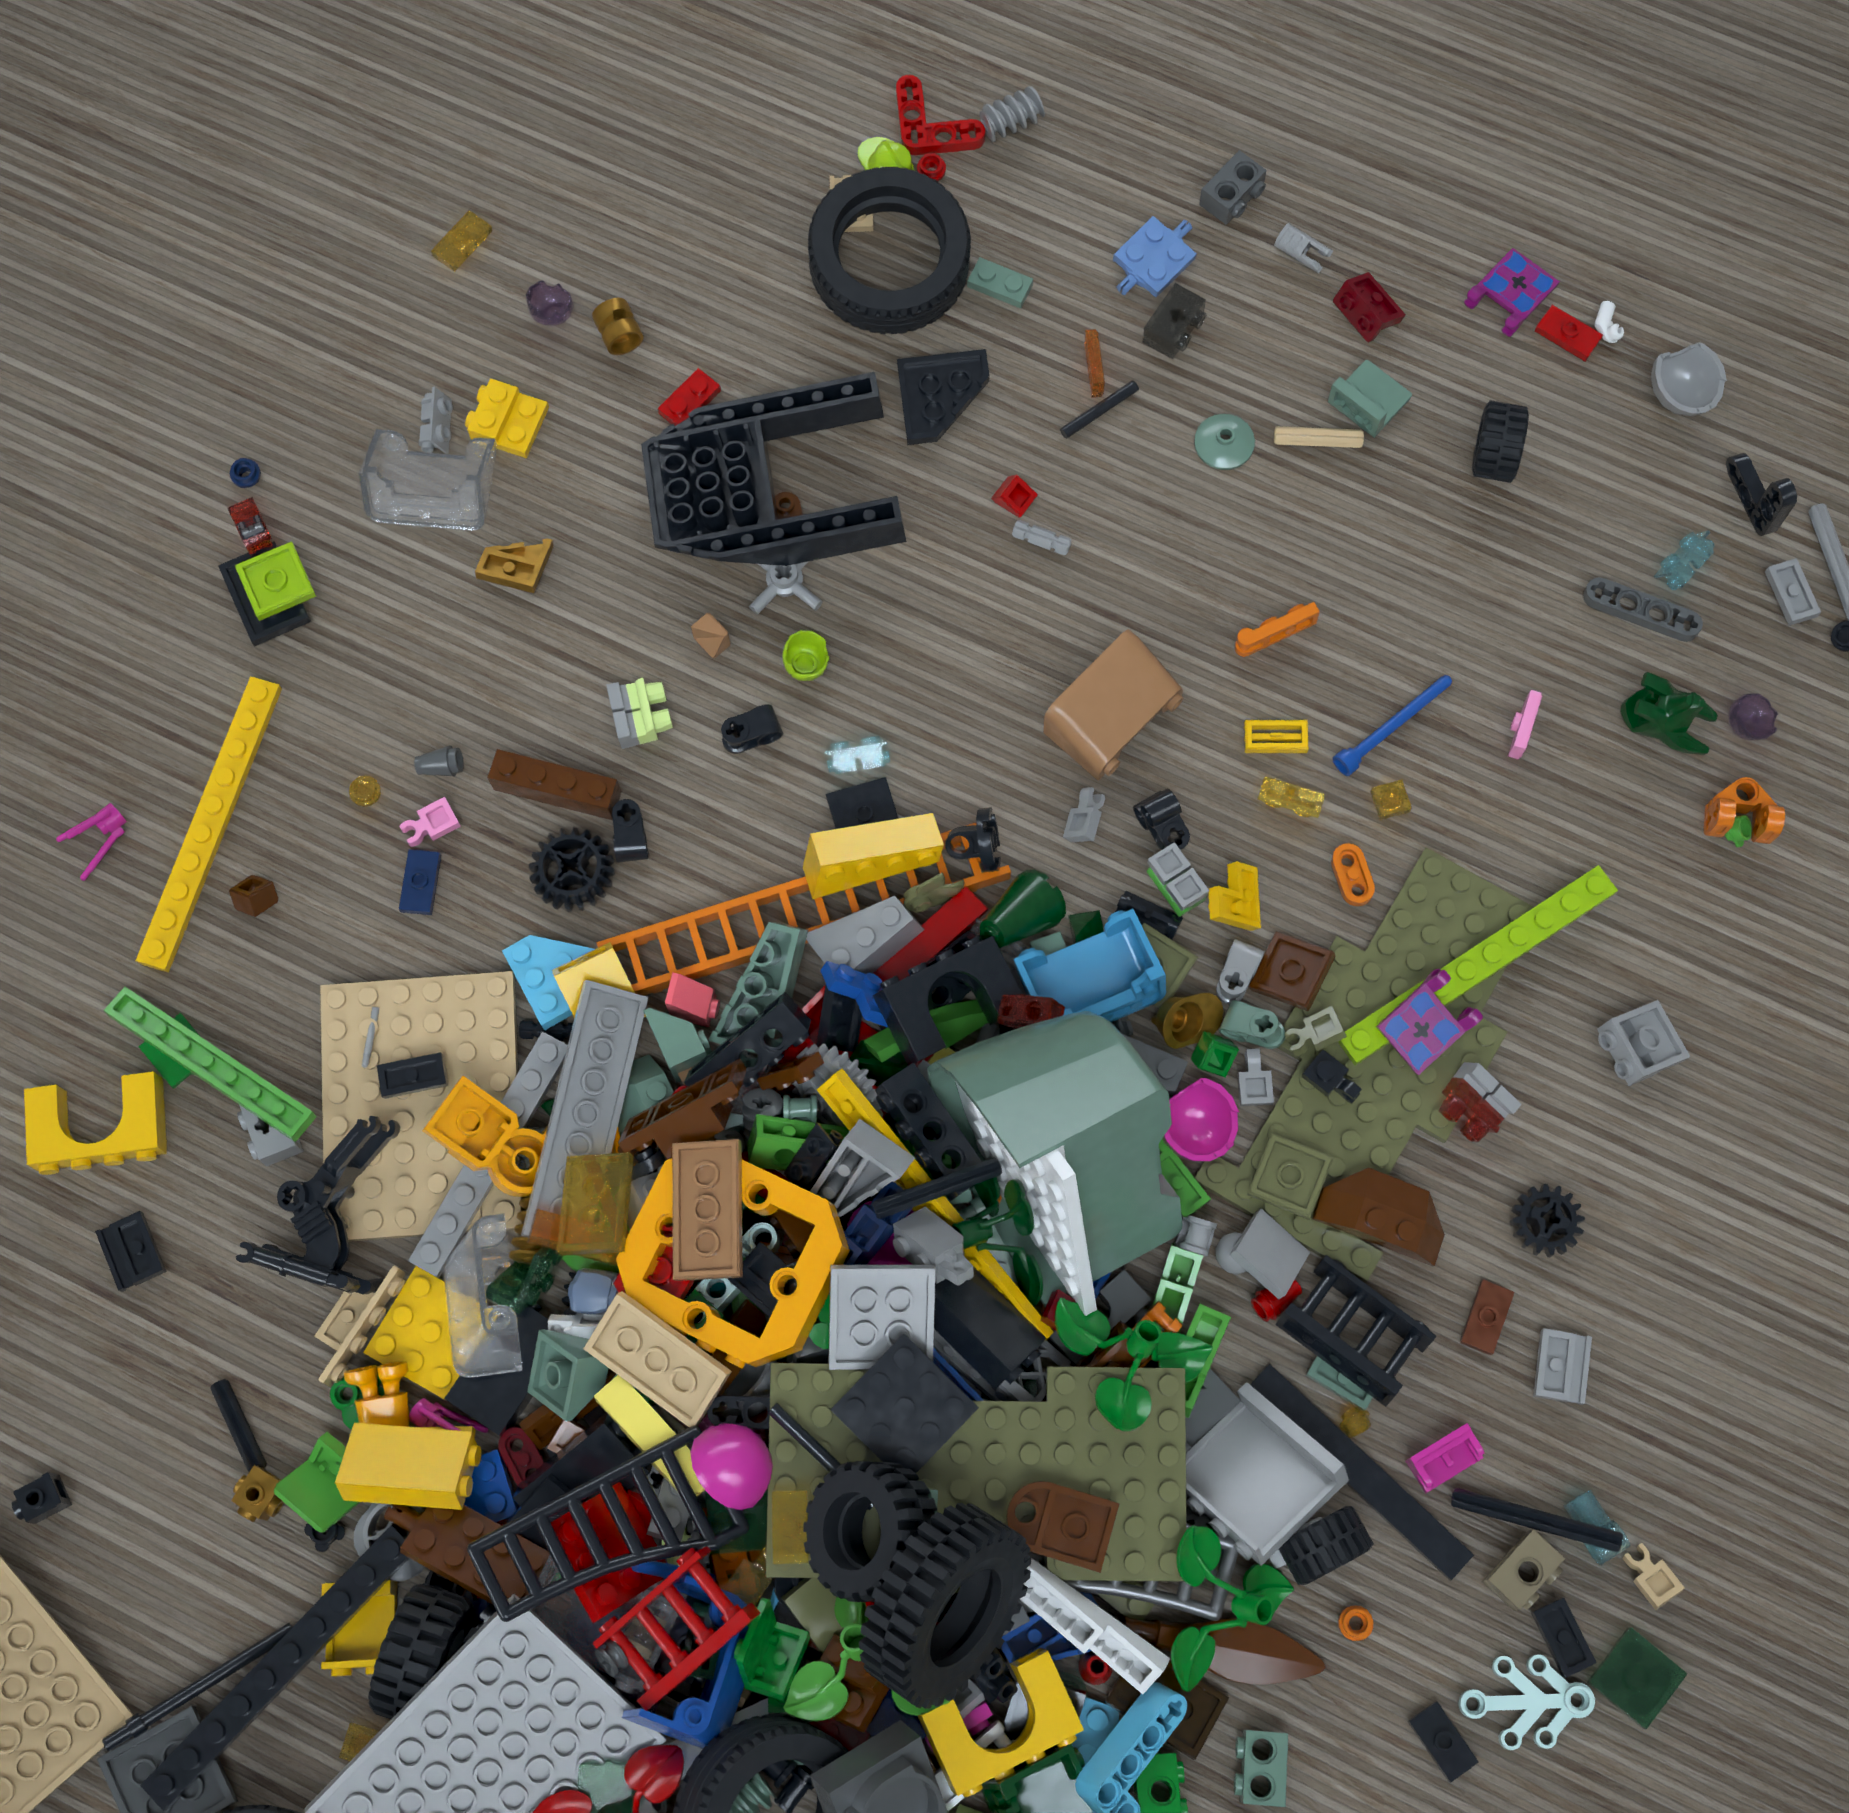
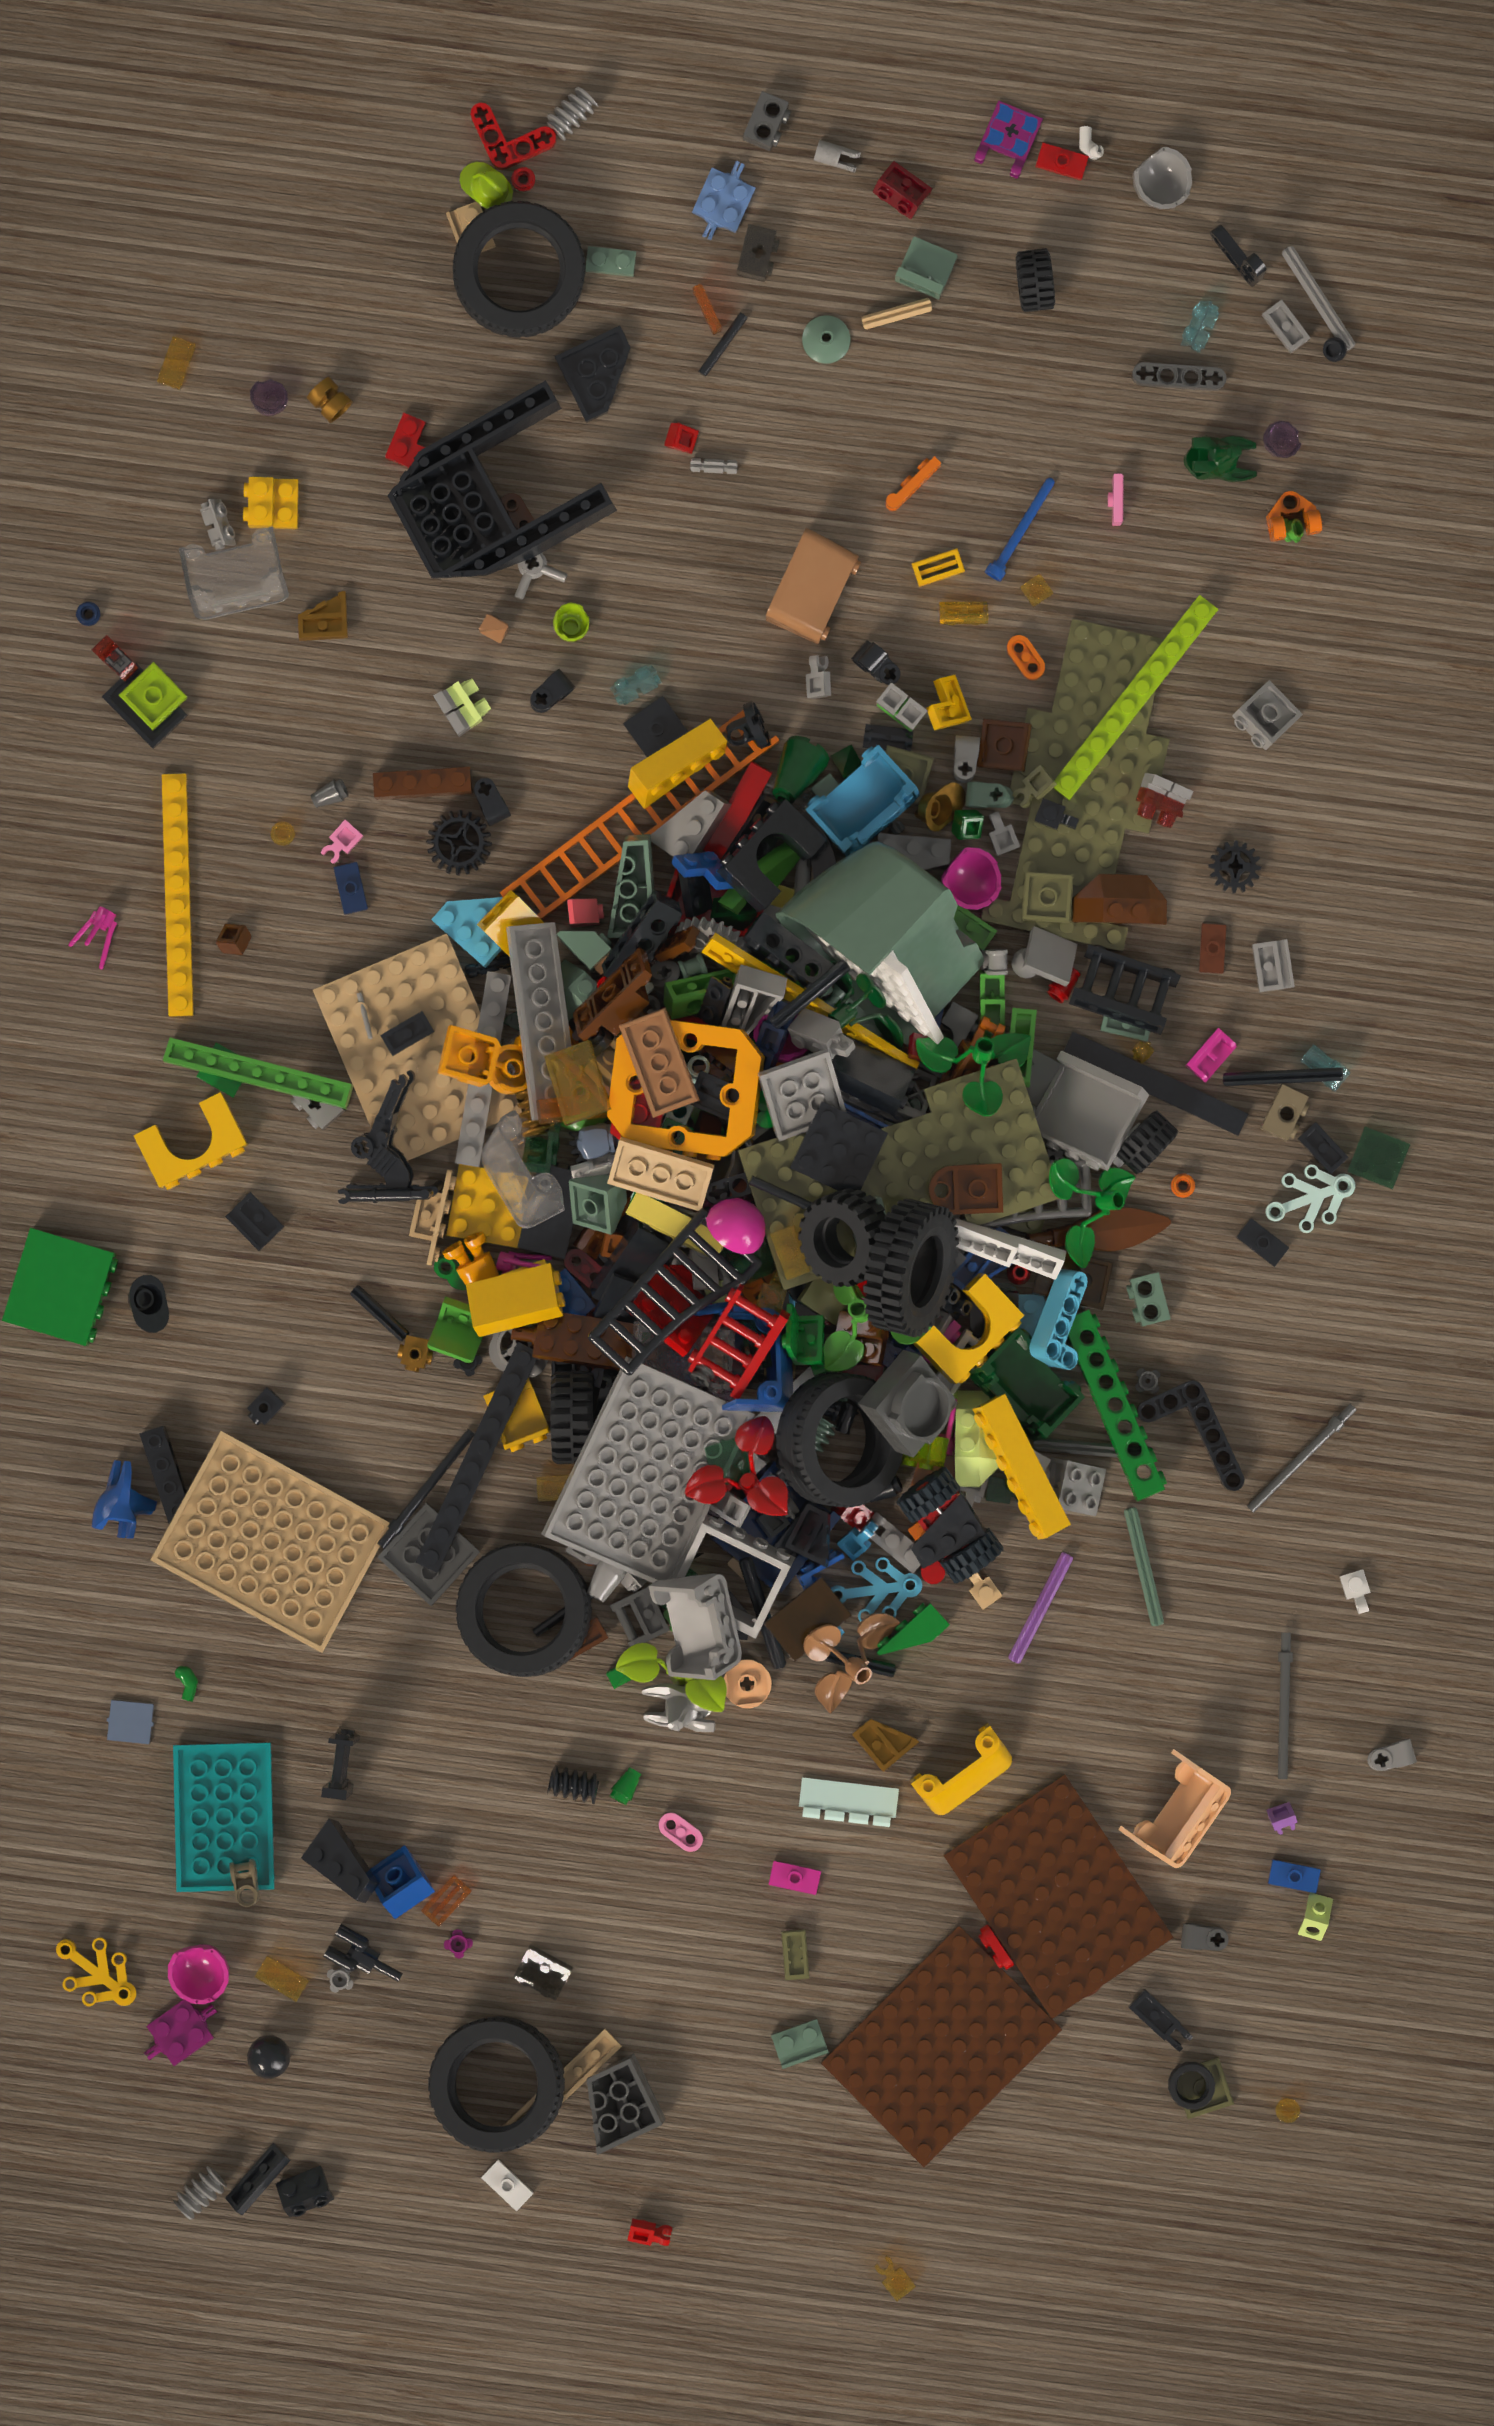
camera: 20 degrees left, 15 degrees up
(931, 893) = (723, 782): olive plate -> none
(1023, 1010) = (831, 847): clear red leg -> none
(1423, 1026) = (1108, 757): magenta flag -> none
(1655, 1581) = (1374, 1090): tan plate -> none

